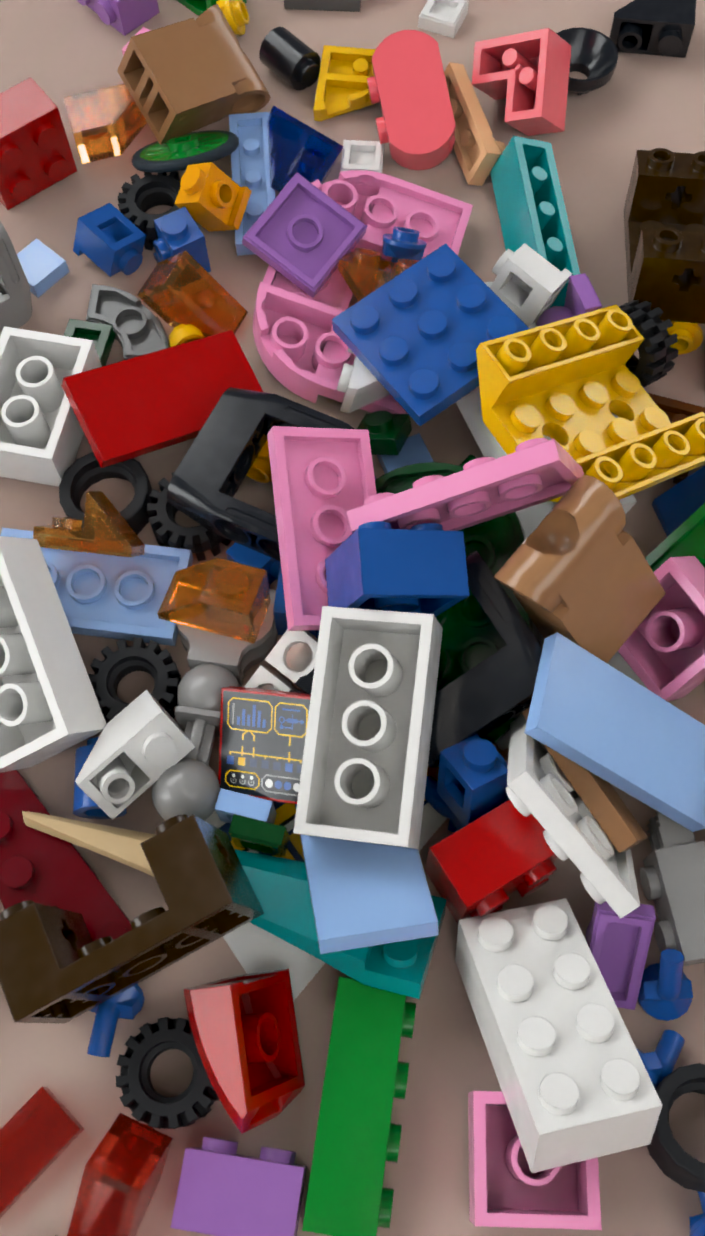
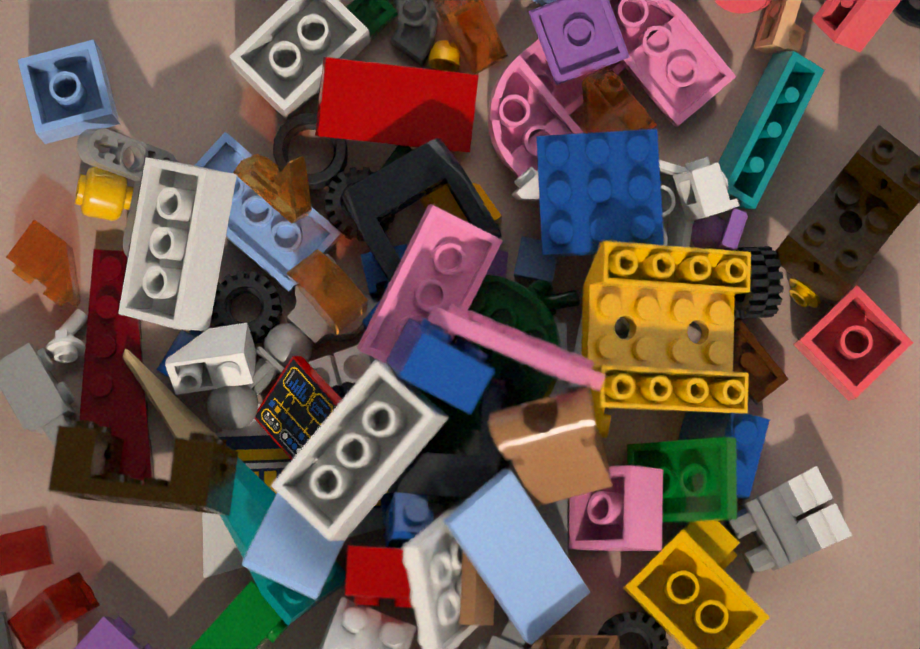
camera: 35 degrees right, 15 degrees up
(122, 1006) = (103, 512): blue plate -> none
(136, 1084) = (97, 567): black tyre -> none
(244, 805) = (262, 440): light blue tile -> none
(248, 1043) = (176, 581): red slope -> none
(259, 836) = (260, 462): dark green tile -> none
(386, 431) = (525, 228): dark green plate -> none
(403, 244) = (648, 87): blue plate -> none

